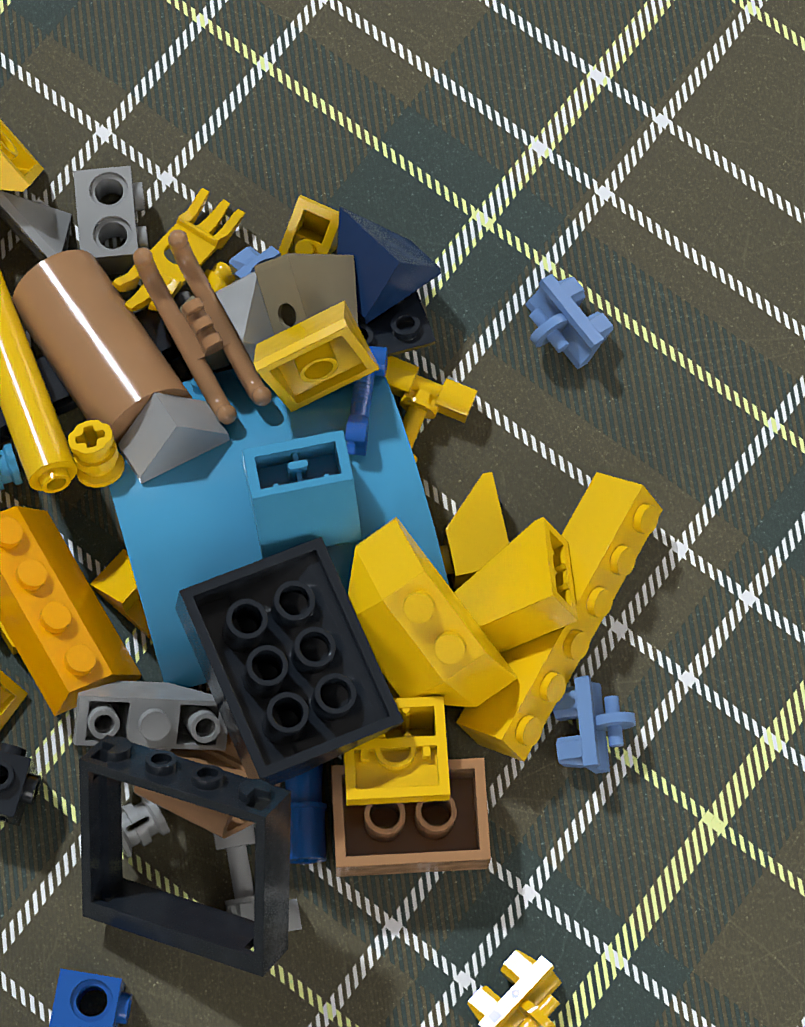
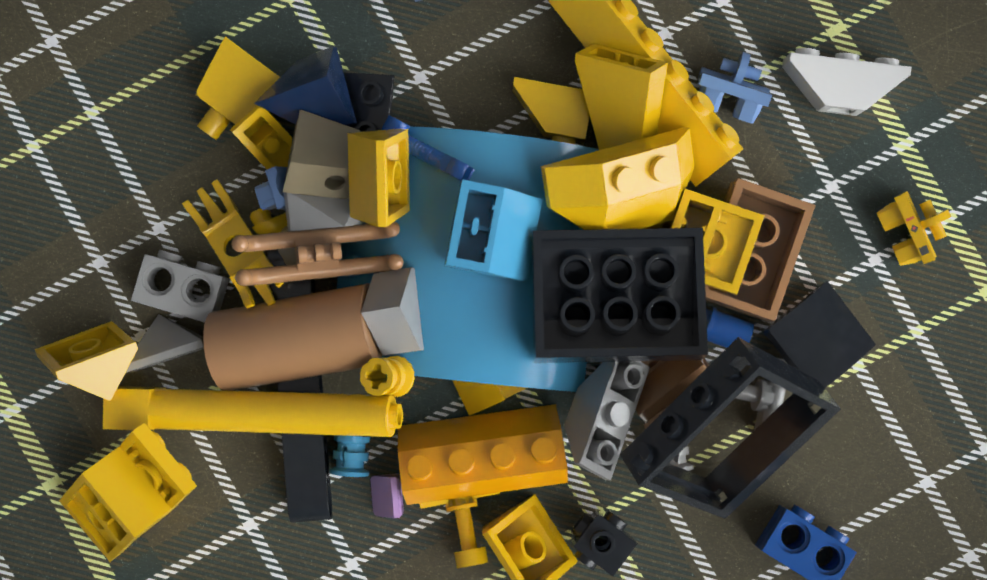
camera: 65 degrees left, 15 degrees up
(343, 942) = (820, 336): none -> black slope
(353, 181) = (231, 87): none -> yellow torso
(425, 398) = (428, 100): yellow bar -> none
(654, 850) = (843, 82): none -> white slope

